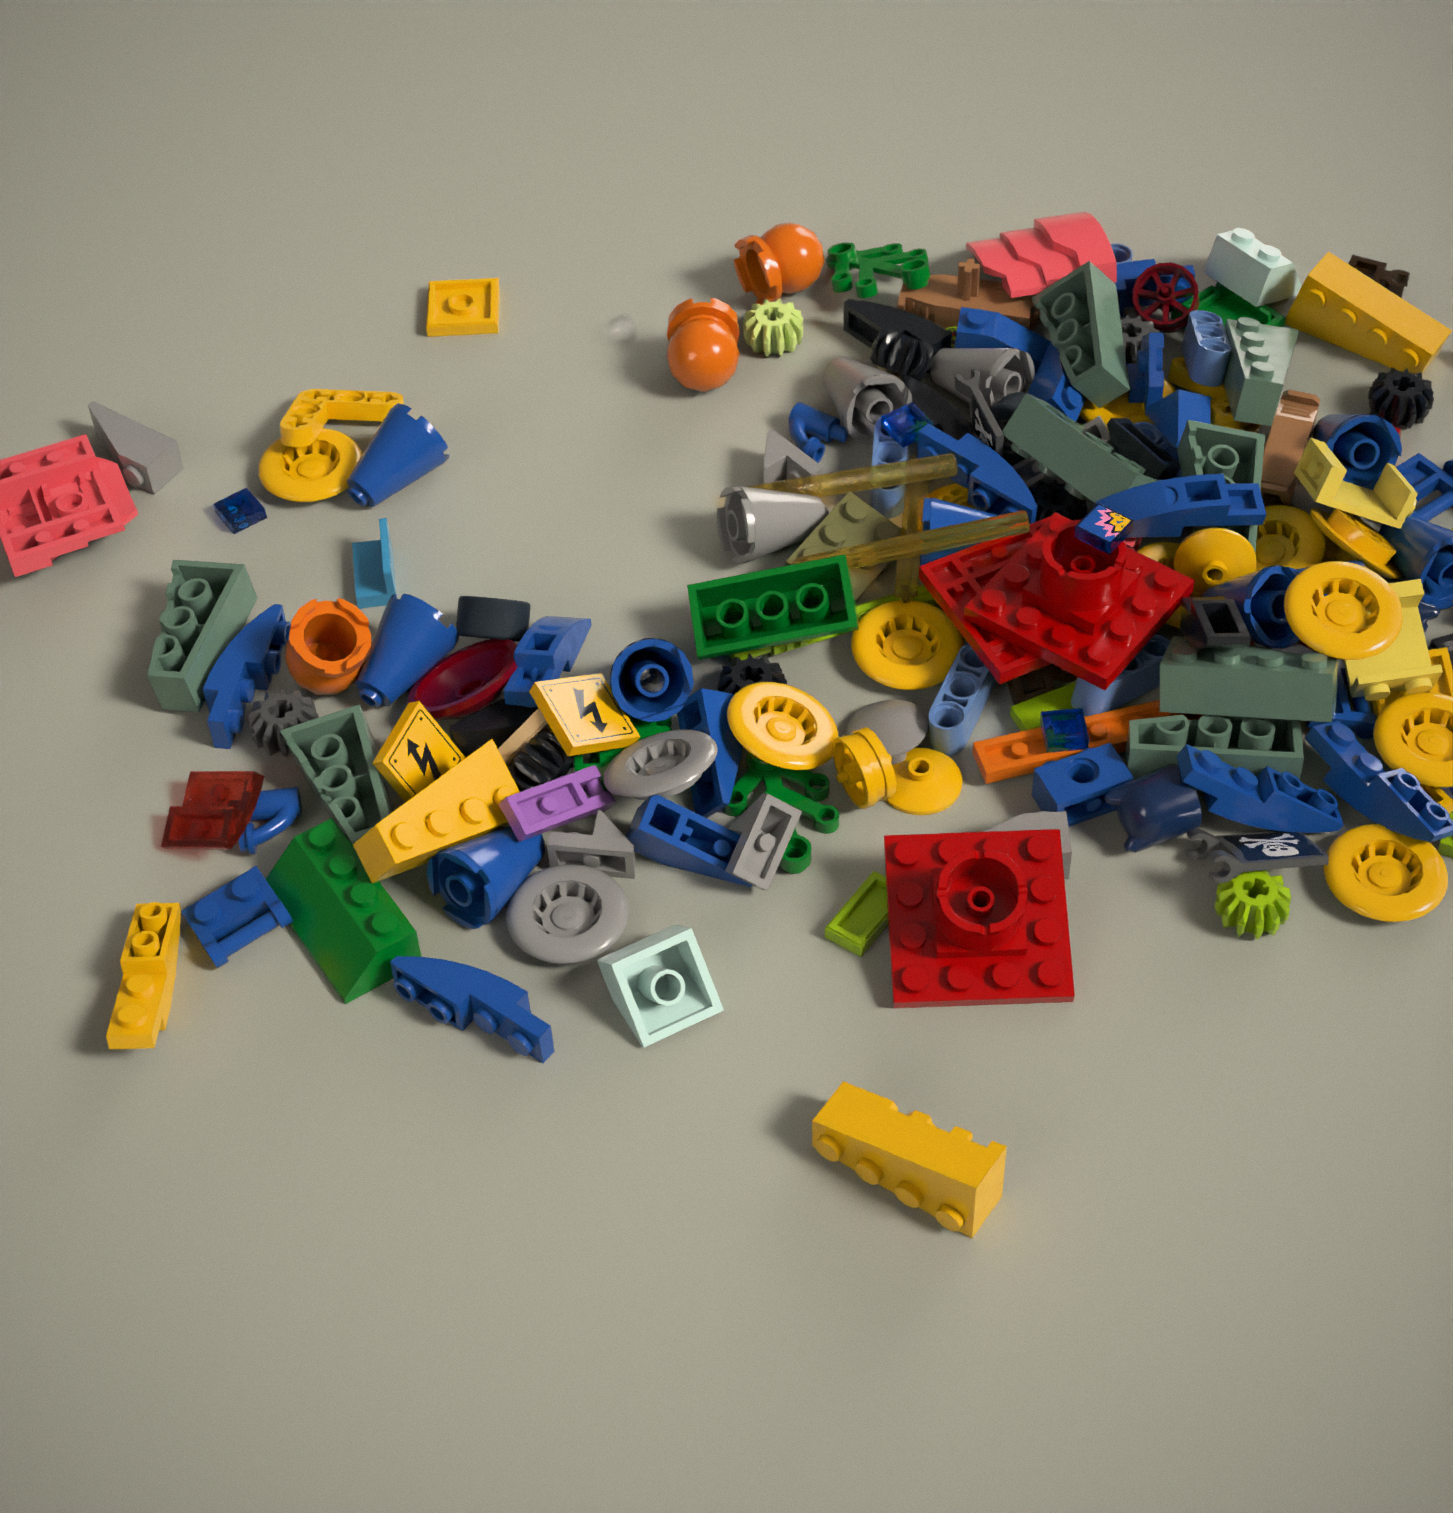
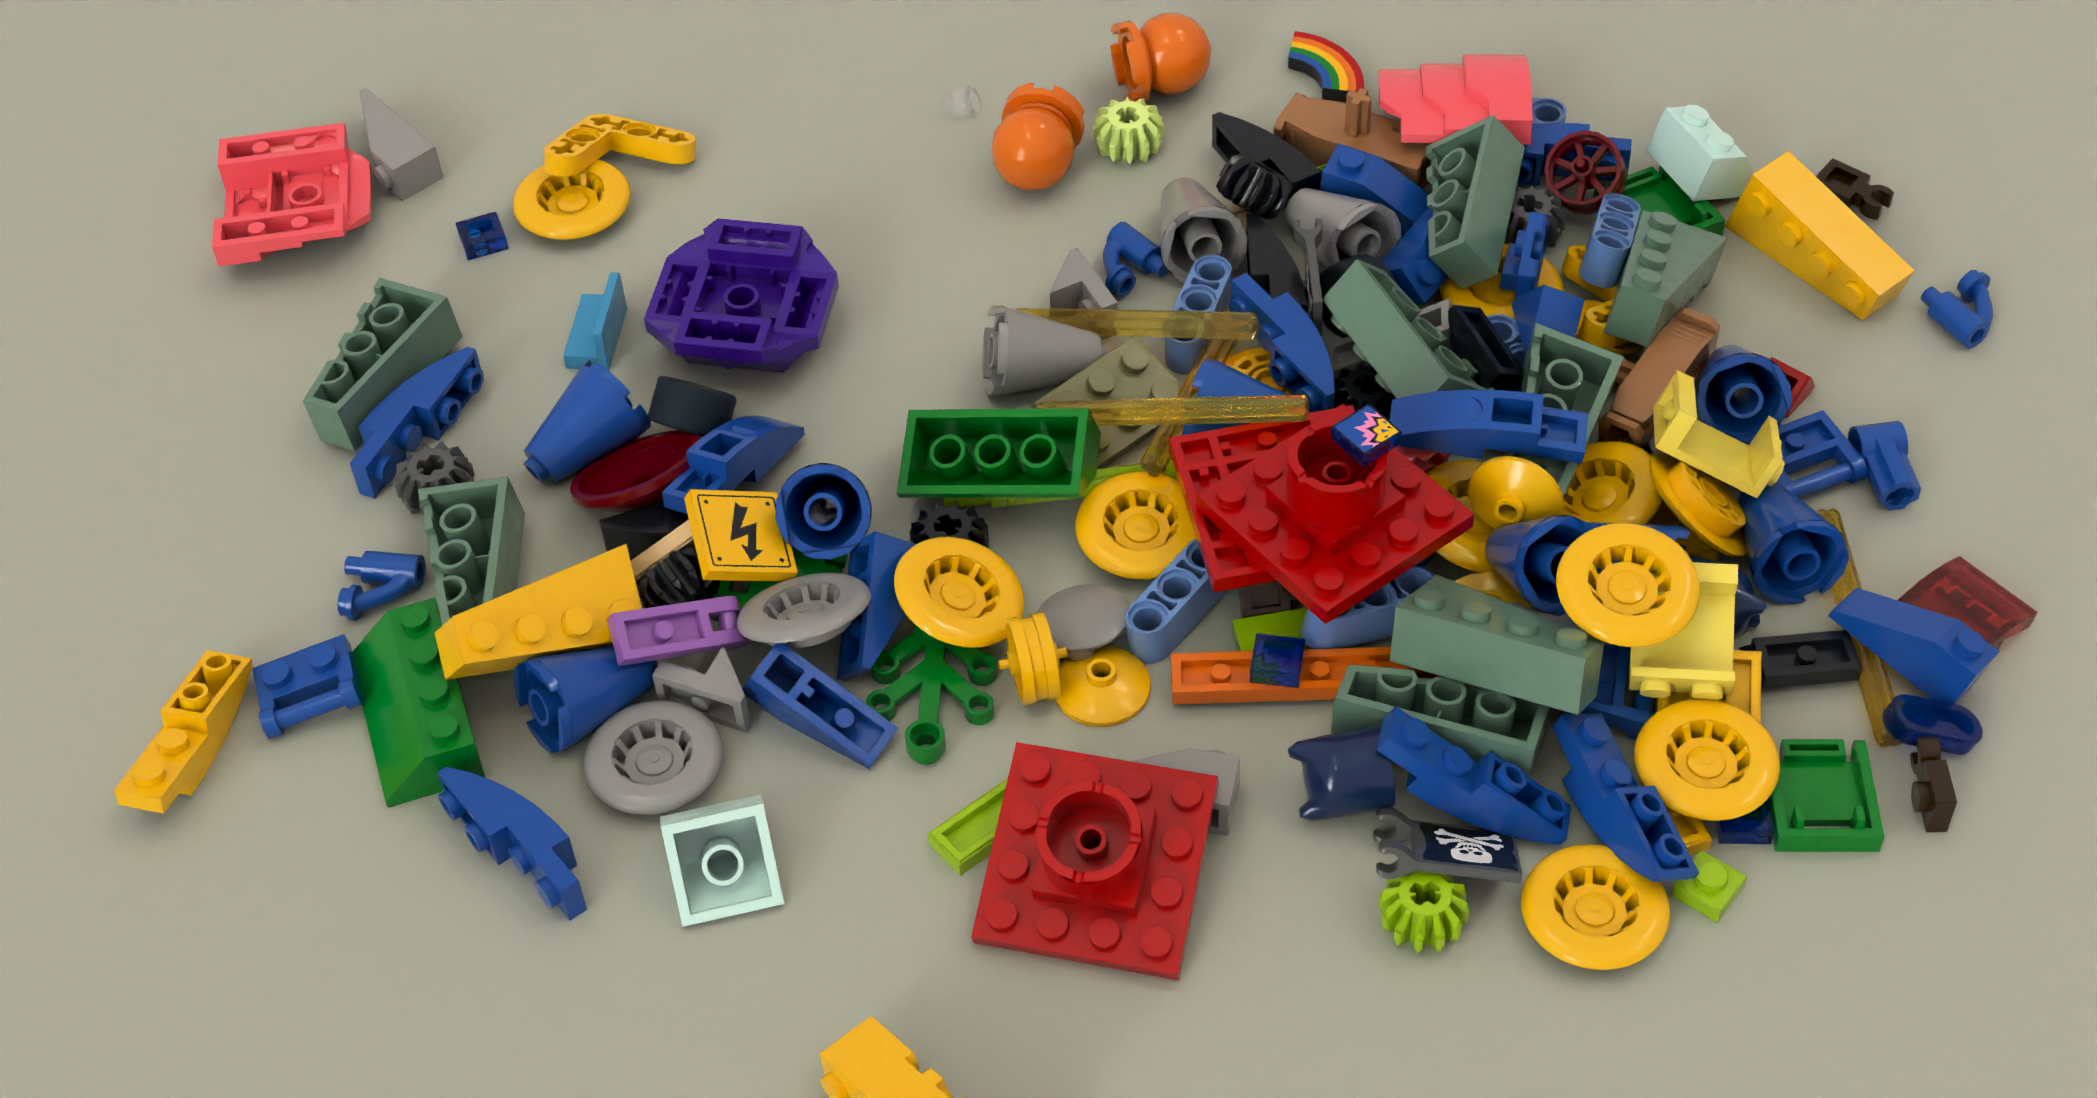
camera: 15 degrees right, 0 degrees up
(213, 810) = (325, 565): clear red slope -> none
(327, 646) = (499, 404): orange tile -> none
(396, 457) = (657, 207): blue cone -> none
(416, 752) = (549, 539): yellow tile -> none
(463, 307) = (802, 49): yellow tile -> none
(502, 519) = (743, 296): none -> dark purple piece
(763, 840) = (887, 720): light grey slope -> none
(878, 260) = (1271, 73): green plant -> none
(905, 423) = (1223, 266): clear blue tile -> none
(939, 256) = (1326, 63): none -> tile
(1080, 783) = (1269, 723): blue brick -> none
(1213, 623) = (1472, 569): black slope -> none
(1401, 397) = (1827, 340): black gear -> none

